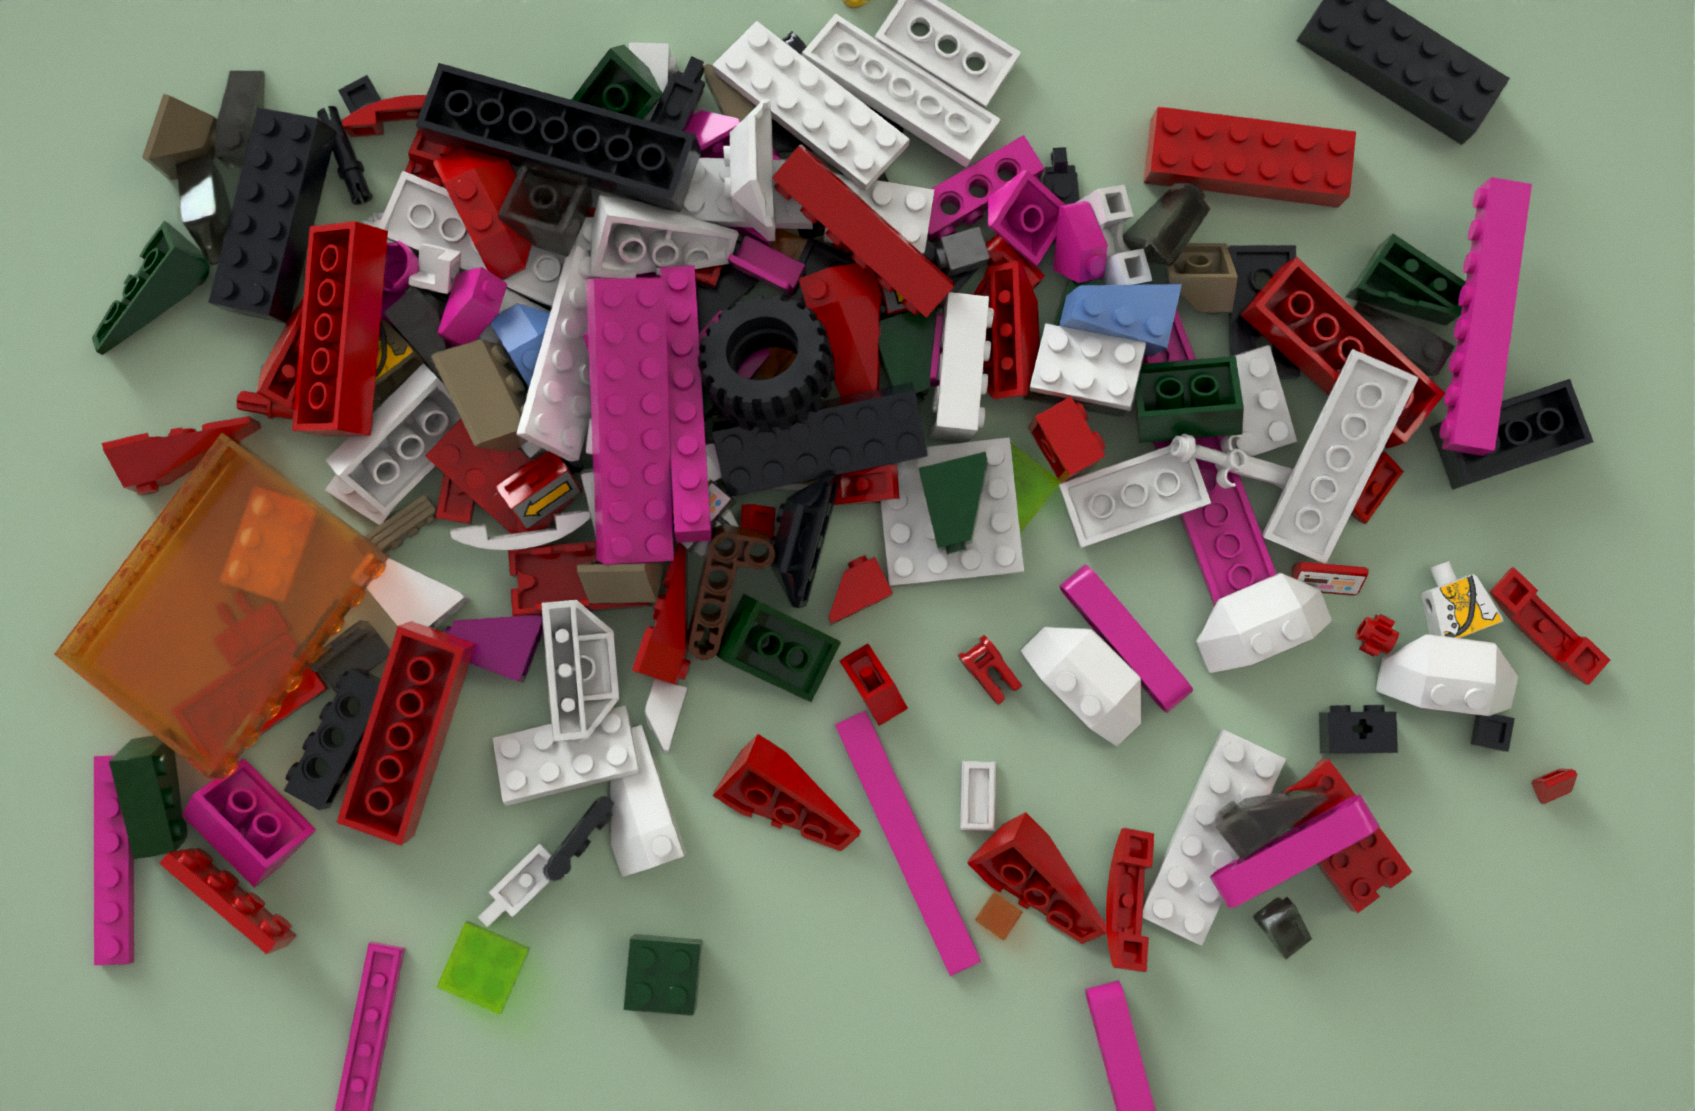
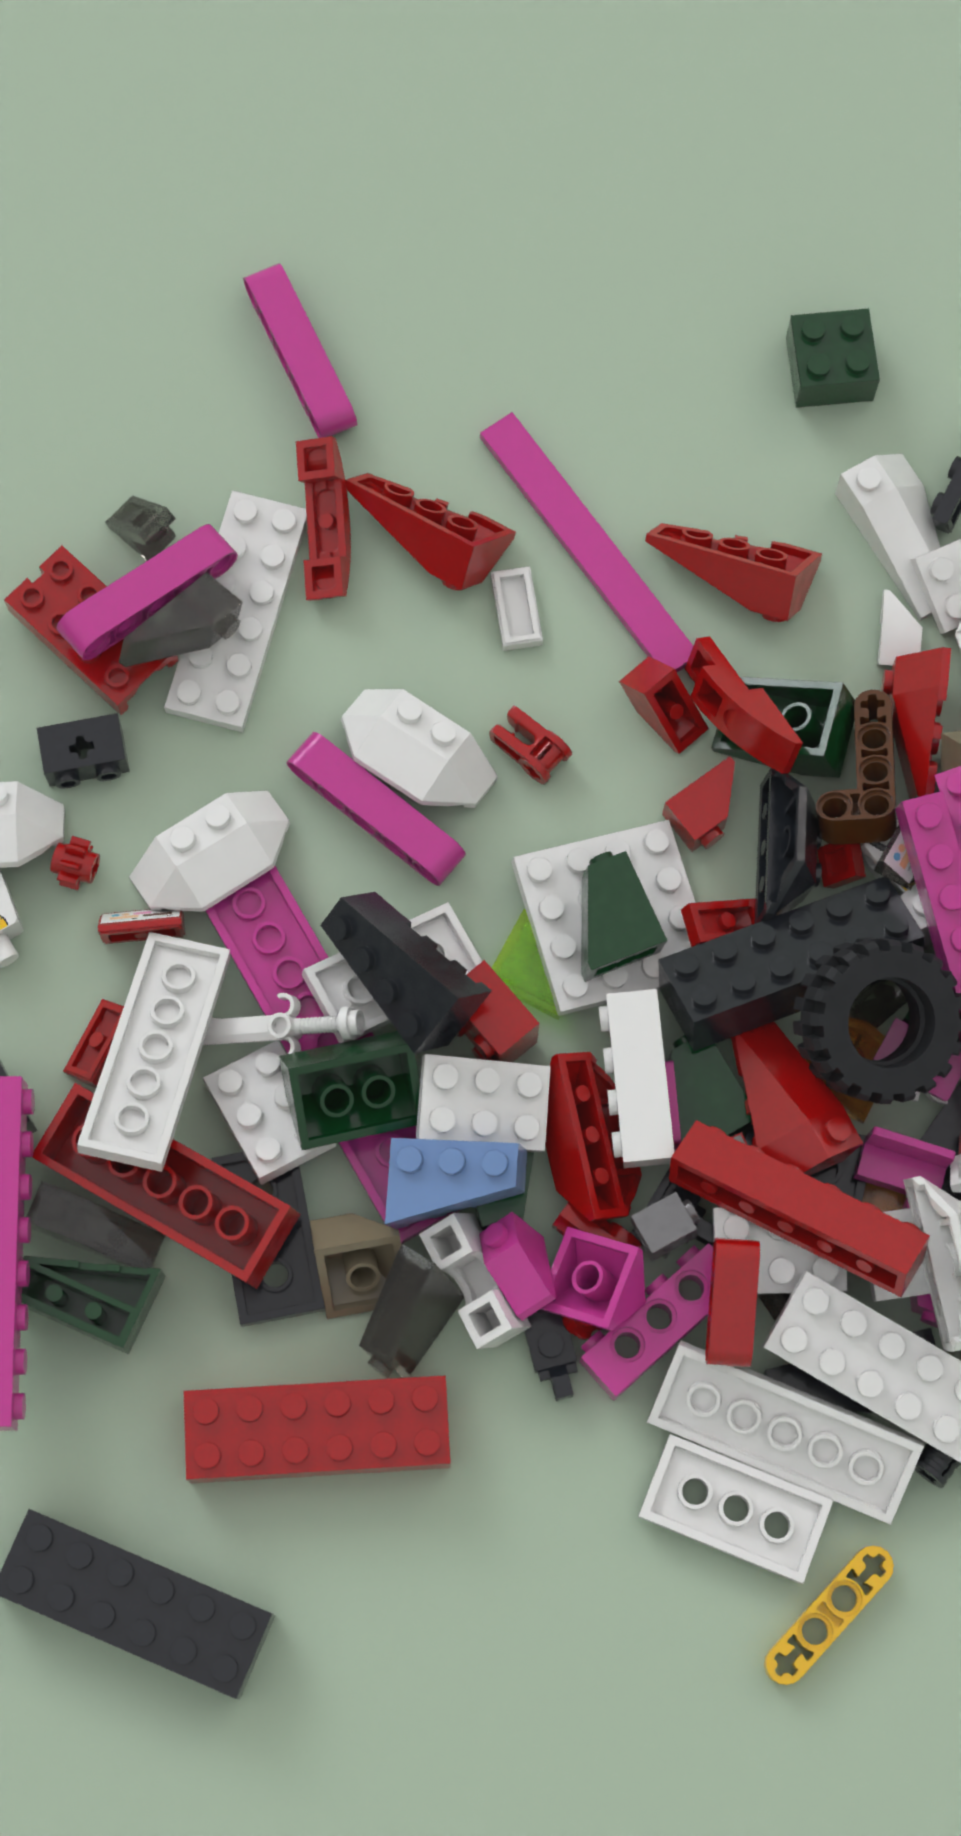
camera: 175 degrees right, 10 degrees down
(814, 650) = (739, 713): none -> red slope
(926, 173) = (732, 1302): none -> red beam
(998, 915) = (468, 485): clear orange plate -> none
(1139, 478) = (403, 971): none -> black wedge

